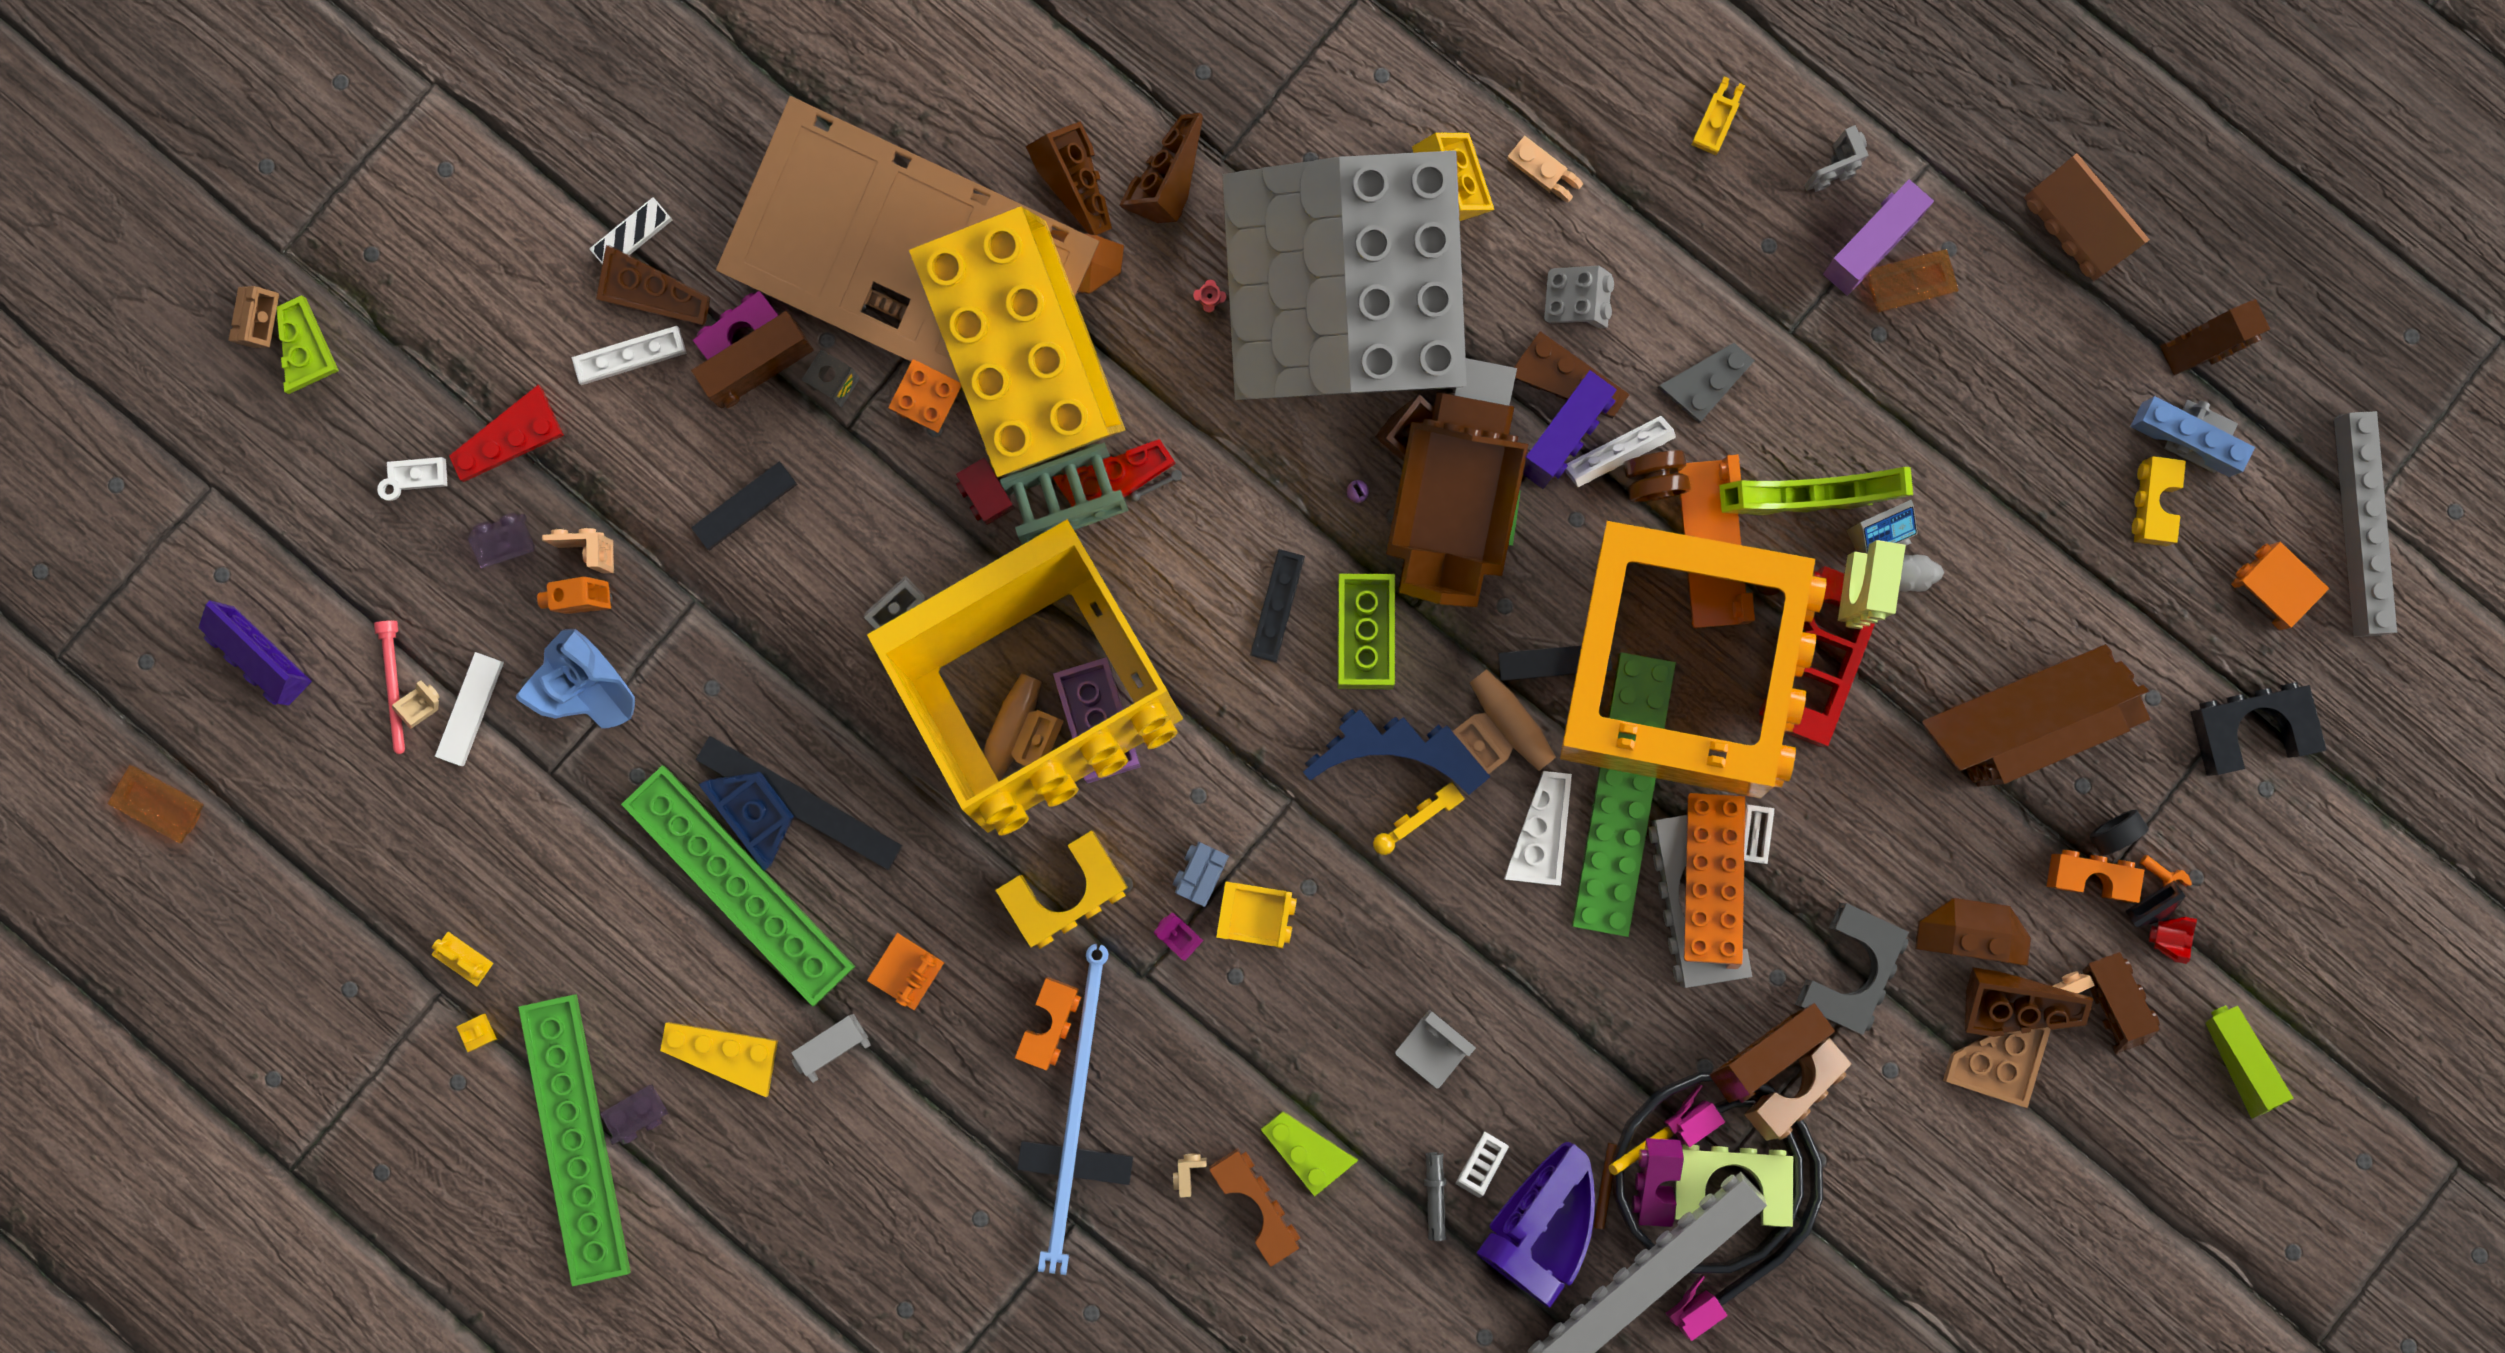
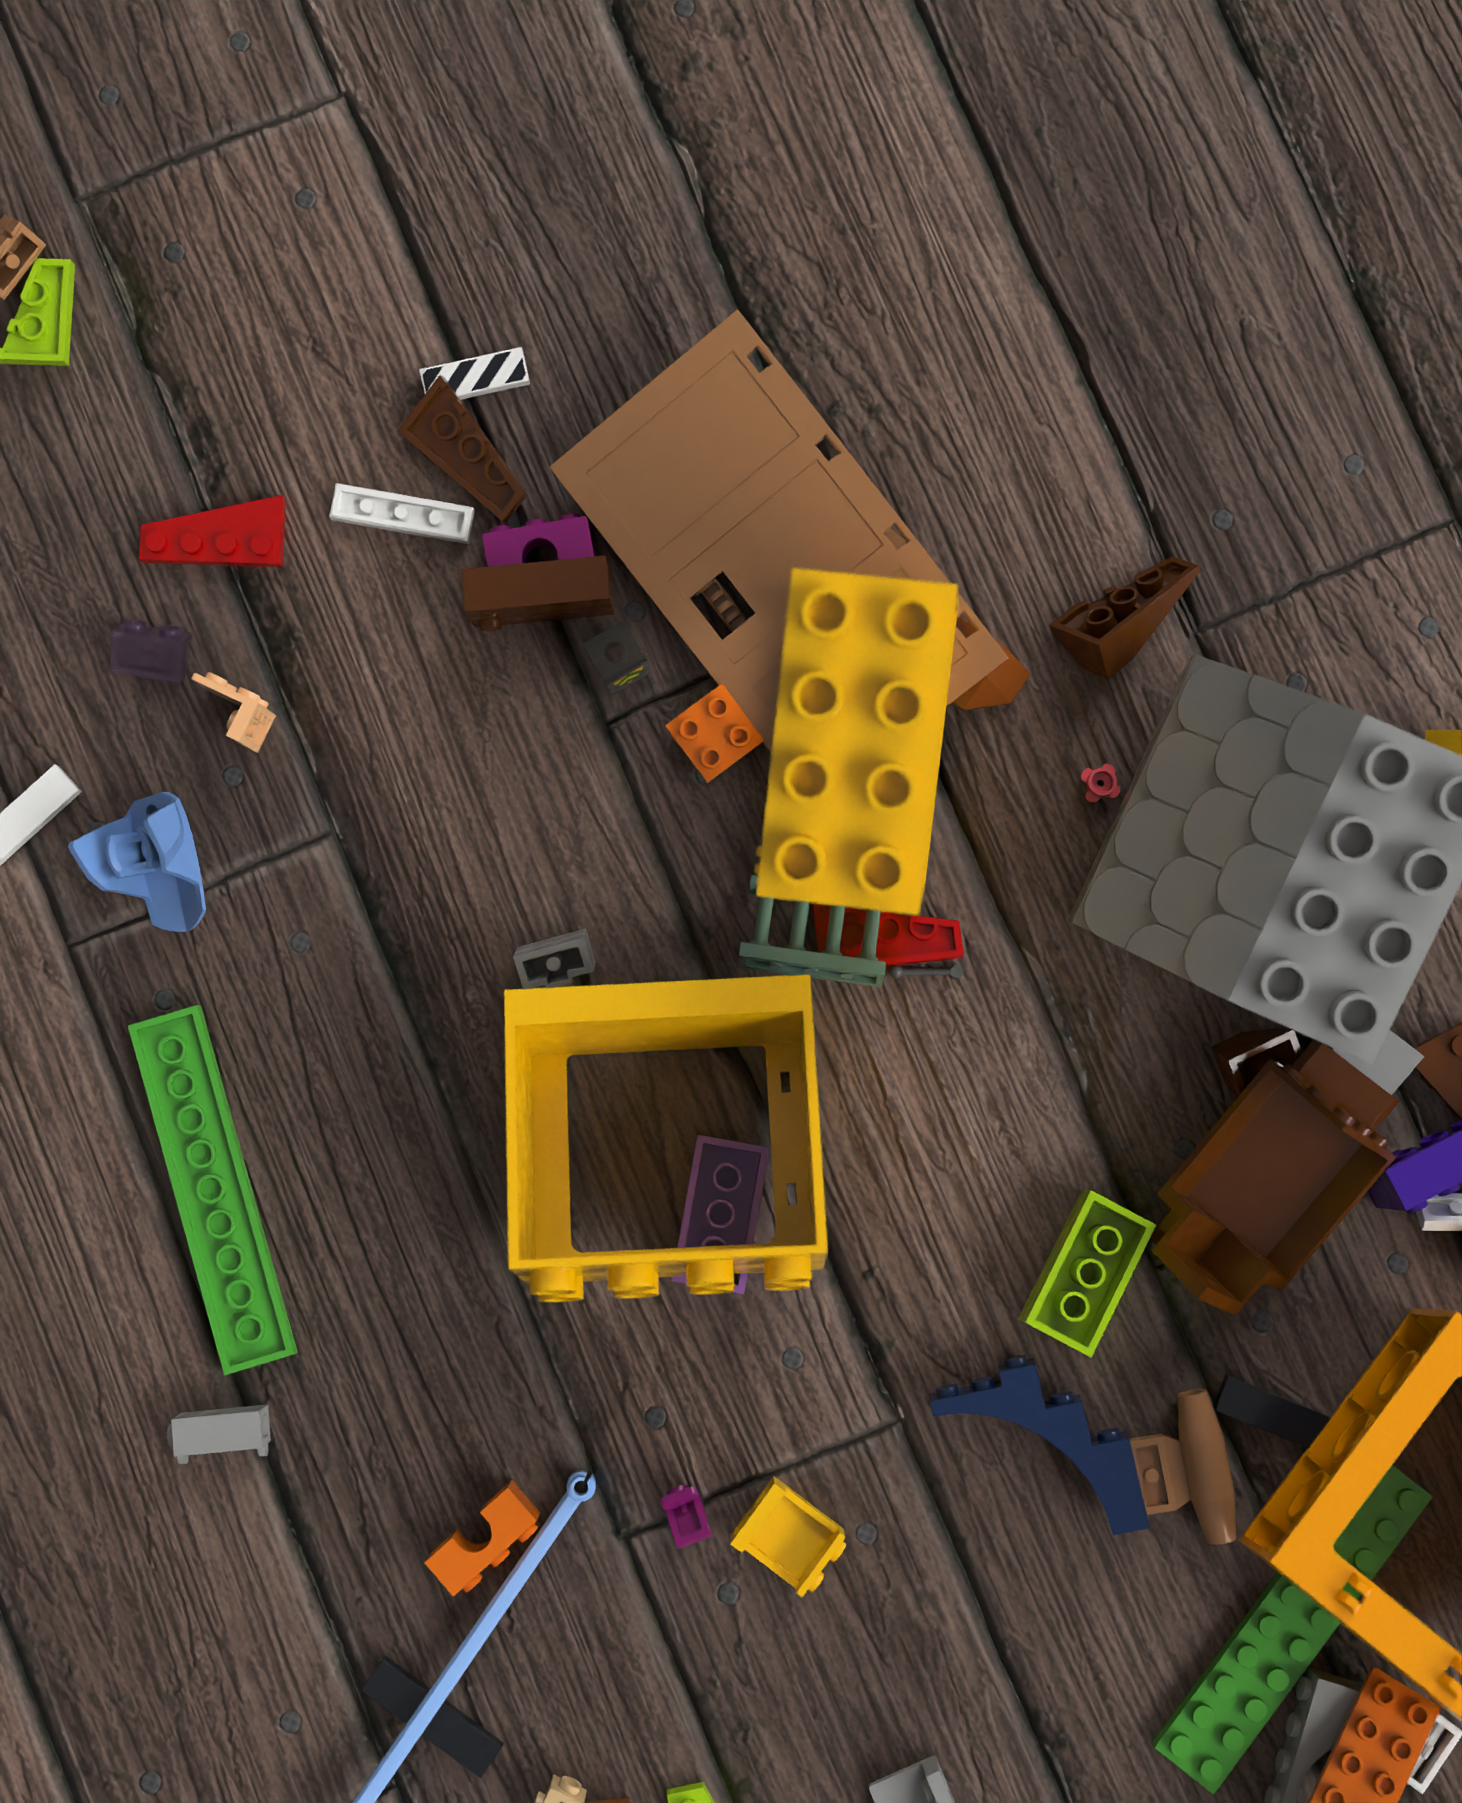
camera: 30 degrees right, 0 degrees up
(413, 475) = (90, 527): white hinge -> none
(575, 595) = (199, 759): orange torso -> none
(728, 1055) = (98, 1376): yellow wing -> none
(744, 505) = (443, 752): black tile -> none
(752, 812) = (270, 1112): dark blue wing -> none
(805, 805) = (331, 1128): black tile -> none
(905, 971) = (351, 1389): orange hinge -> none
(985, 492) = (726, 878): dark red piece -> none
(1019, 729) = (626, 1183): medium nougat plate -> none
(1040, 923) = (536, 1417): yellow arch -> none
(1067, 167) = (1010, 551): reddish brown wedge -> none
(1200, 874) = (749, 1455): sand blue brick -> none
(1277, 605) = (996, 1184): black tile -> none
(1352, 494) = (1150, 1099): medium lavender hinge -> none
(1447, 798) = (1081, 1517): yellow plate -> none
(1543, 834) = (1173, 1619): white wing -> none

